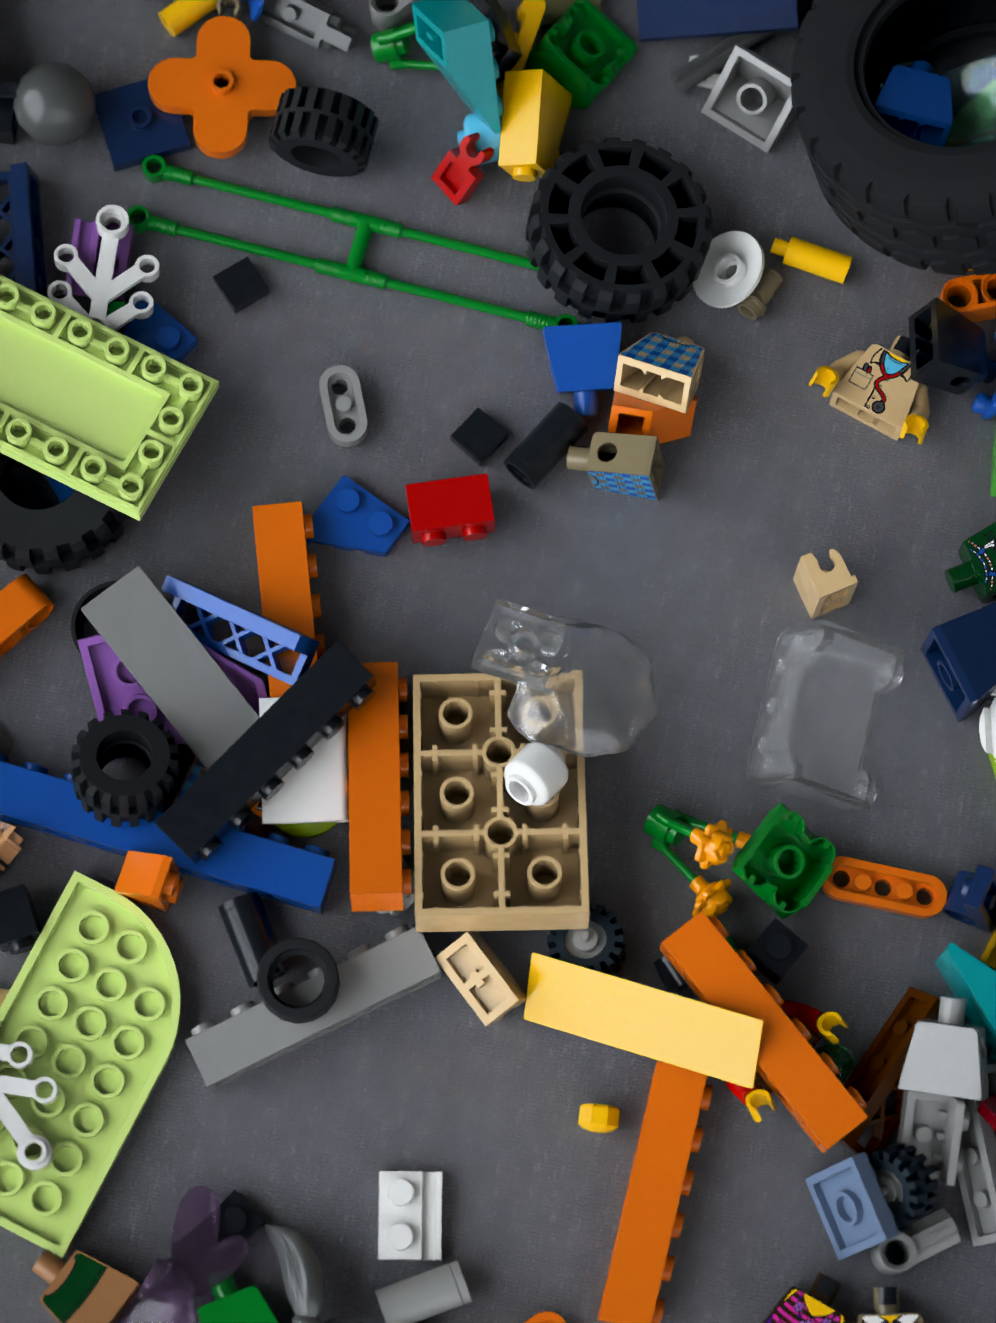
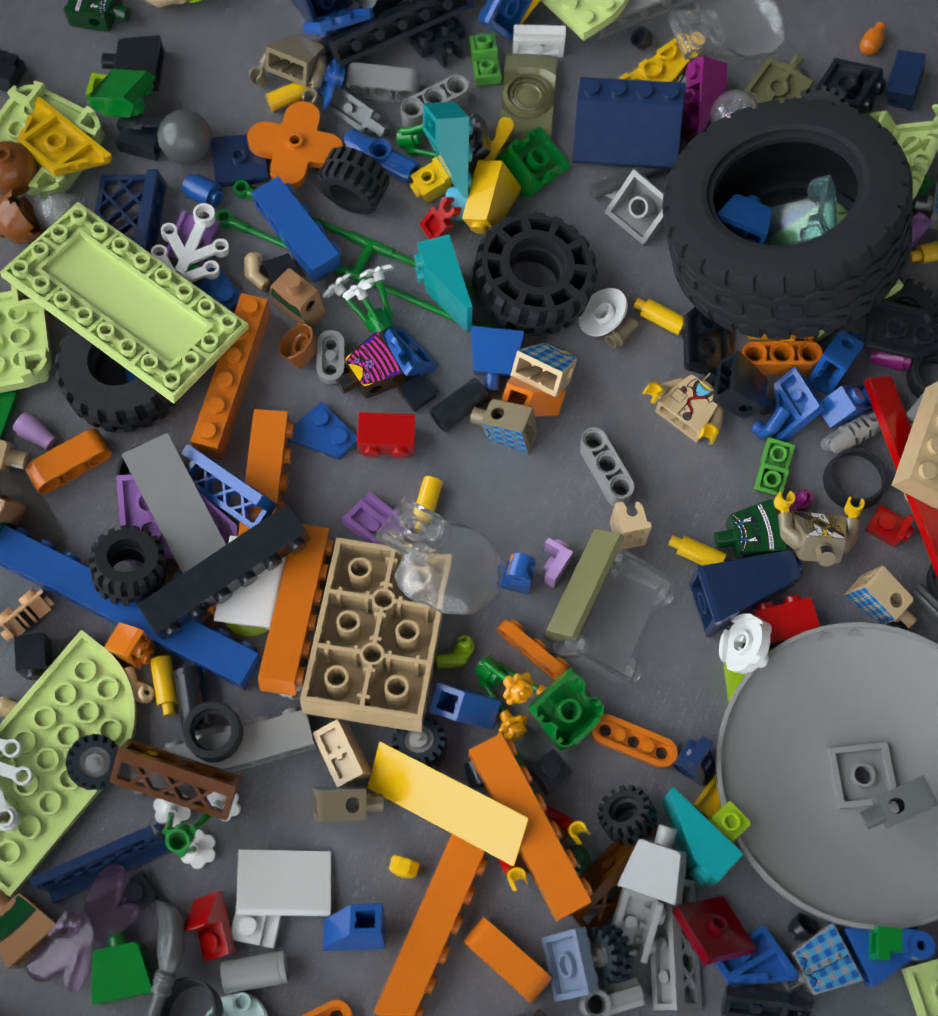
camera: 10 degrees right, 5 degrees down
(97, 181) = (202, 190): none -> blue brick
(140, 1052) = (91, 761): none -> black wheel
(158, 1203) = (79, 873): none -> dark blue fence
(181, 943) = (142, 692): none -> tan arm
(199, 295) = (252, 271): none -> tan arm
(206, 467) = (231, 380): none -> orange brick
(208, 925) = (164, 684): none -> yellow cylinder
(254, 220) = (297, 229): none -> blue brick
(265, 1040) = (179, 768): none -> reddish brown fence
(273, 327) = (294, 295): none -> medium nougat torso
(293, 396) = (298, 345): none -> dark orange hat
(294, 1134) = (188, 840): none -> white plant
(349, 1241) = (211, 922): none -> red slope
(375, 90) = (394, 162): none -> blue piece
(401, 336) = (376, 319): none -> plant
(407, 413) = (371, 368): none -> torso
(437, 1169) = (284, 883): none -> white piece
(449, 114) = (430, 181): none -> yellow brick
(450, 637) = (367, 518): none -> medium lavender plate
(457, 380) = (408, 352): none -> blue wing
(483, 1052) = (330, 803): none -> dark tan torso
(489, 264) = (443, 279): none -> teal slope
(528, 584) = (429, 492): none -> yellow cylinder
(536, 774) = (403, 617): white head -> none
(549, 1212) = (356, 928): none -> blue slope
(616, 811) = (458, 656): none -> lime arm
(641, 880) = (465, 705): none -> blue slope
(679, 679) = (519, 573): none -> blue leg
(719, 783) = (532, 649): none -> orange plate
(728, 659) = (556, 566): none -> lavender bracket
(764, 1216) = (507, 960): none -> orange beam
(773, 482) = (606, 455): none -> light grey beam
(776, 681) = (584, 586): none -> olive slope
(883, 292) = (704, 343): none -> black tile
(903, 1008) = (634, 827): none -> black tyre
(925, 601) = (696, 551): none -> yellow cylinder

